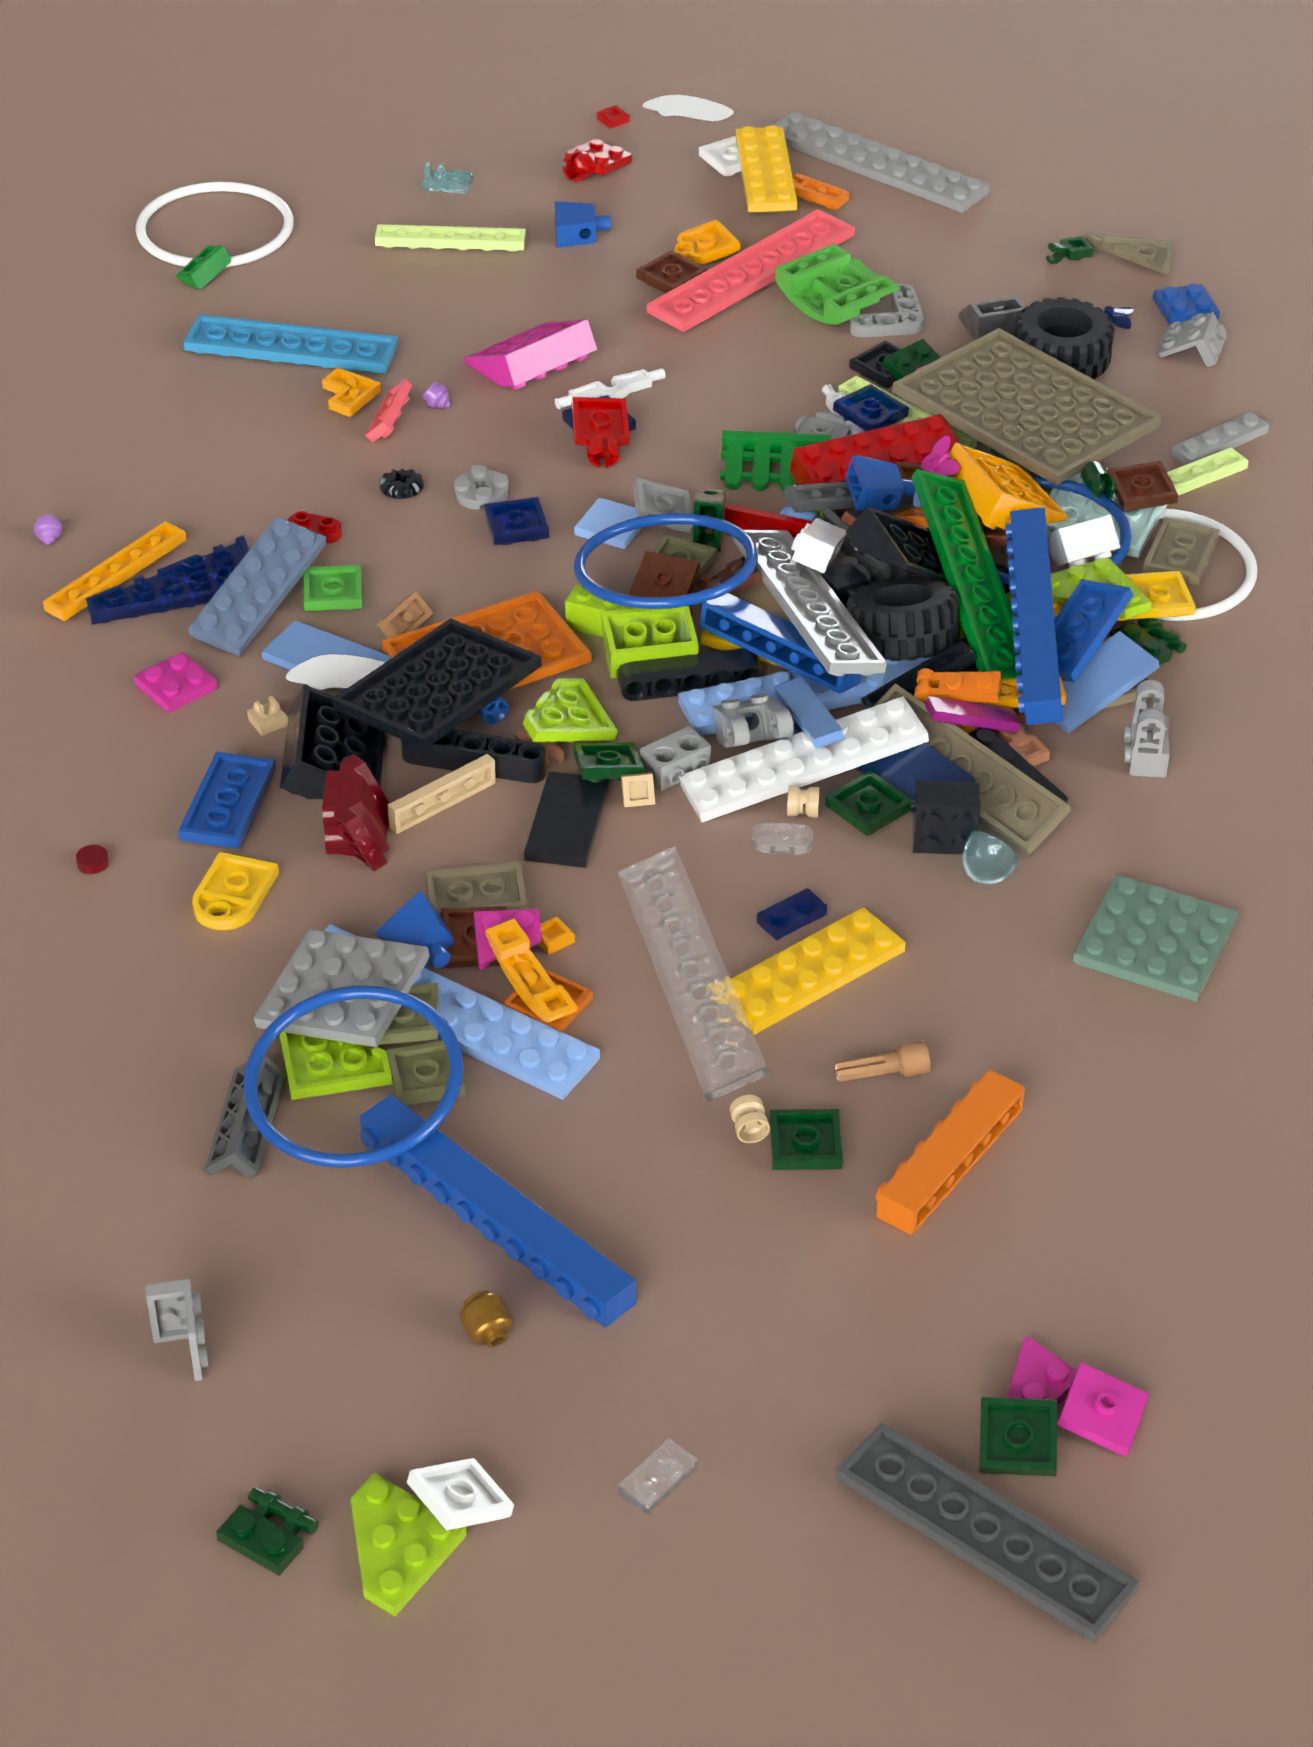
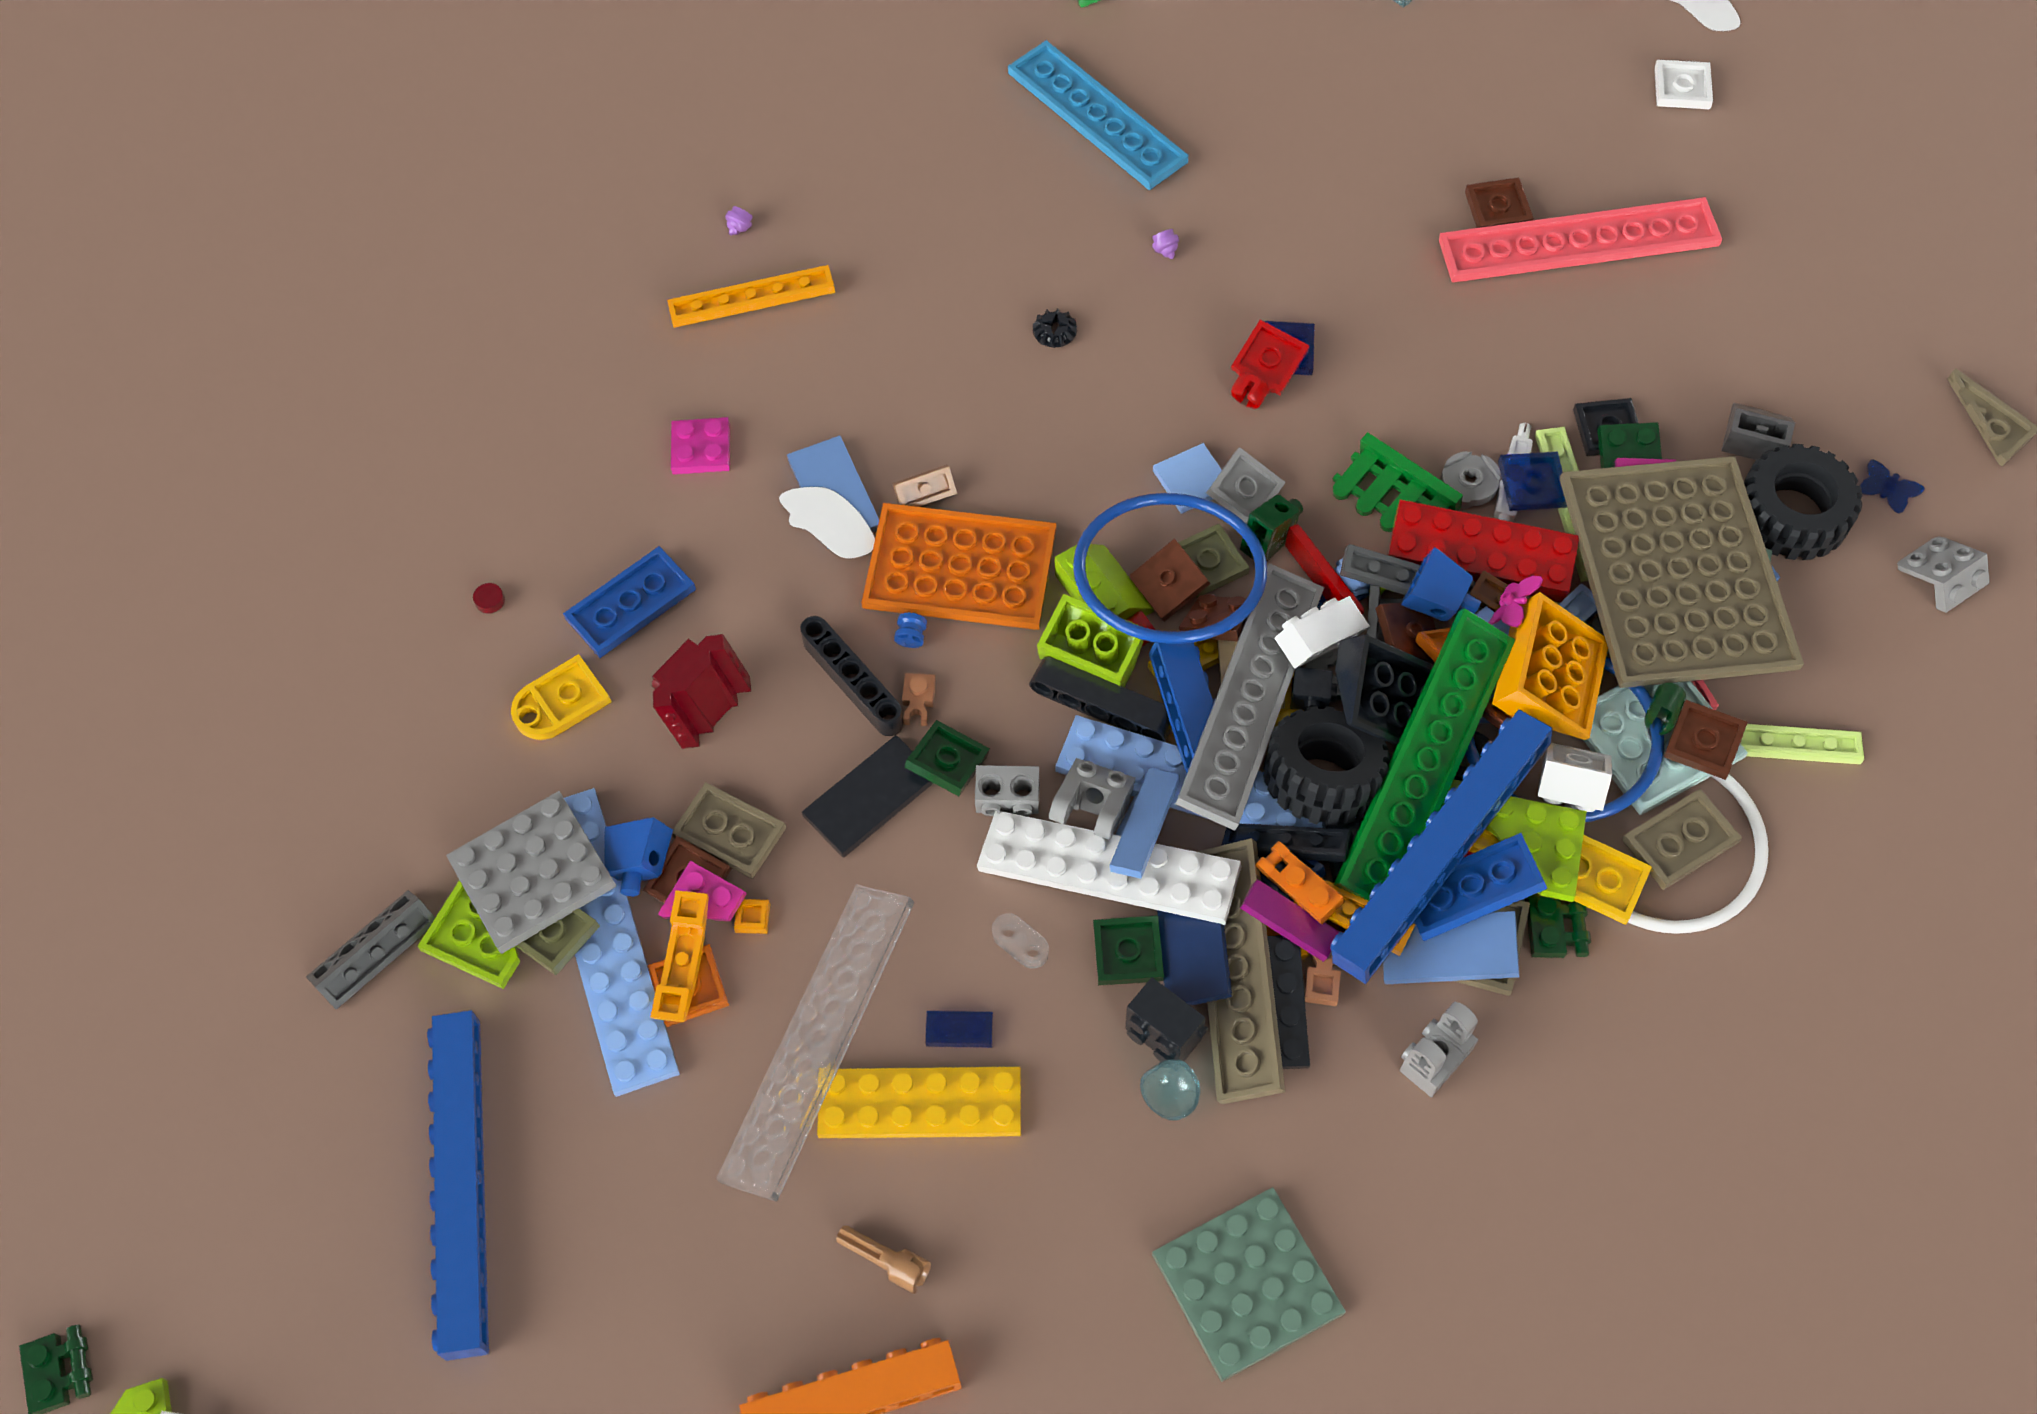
camera: 40 degrees right, 20 degrees up
(173, 1317) = (147, 1139): light grey bracket -> none
(174, 587) = (791, 343): clear blue wing -> none
(257, 586) = (836, 382): sand blue plate -> none
(267, 717) = (735, 529): tan tile -> none
(322, 525) = (943, 335): red plate -> none
(322, 739) = (752, 598): black slope -> none
(333, 588) = (899, 416): bright green plate -> none
(350, 391) = (1102, 200): light orange plate -> none
(372, 1156) = (511, 1040): blue piece -> none
(389, 411) = (1111, 239): coral plate -> none
(420, 1072) = (531, 998): olive plate -> none
(436, 683) = (872, 587): black plate -> none
(441, 794) = (790, 704): tan plate -> none
(450, 237) = (1337, 57): yellowish green plate -> none
(481, 487) = (1118, 358): light grey plate -> none
(486, 1318) = (357, 1290): pearl gold head -> none
(516, 521) = (1110, 429): clear blue plate -> none
(534, 352) = (1290, 236): slope -> none
(569, 714) = (958, 683): lime plate -> none
(577, 223) = (1461, 99): blue torso -> none
(594, 158) = (1546, 25): red plate -> none
(621, 388) = (1342, 317): white piece -> none
(637, 789) = (946, 805): tan tile -> none
(706, 243) = (1561, 184): light orange plate -> none
(749, 1119) = (724, 1235): tan wheel -> none
(765, 169) = (1694, 122): yellow plate -> none
(803, 801) = (1071, 911): tan wheel -> none
(805, 1139) = (750, 1290): dark green plate -> none
(819, 192) = (1726, 171): orange plate -> none
(831, 285) = (1637, 304): bright green slope -> none
(882, 163) = (1827, 164): light grey plate -> none
(906, 319) = (1675, 377): light grey beam -> none
(1072, 248) = (1924, 380): dark green plate -> none
(1184, 302) = (1984, 516): blue plate -> none
(1220, 438) = (1862, 713): light grey plate -> none

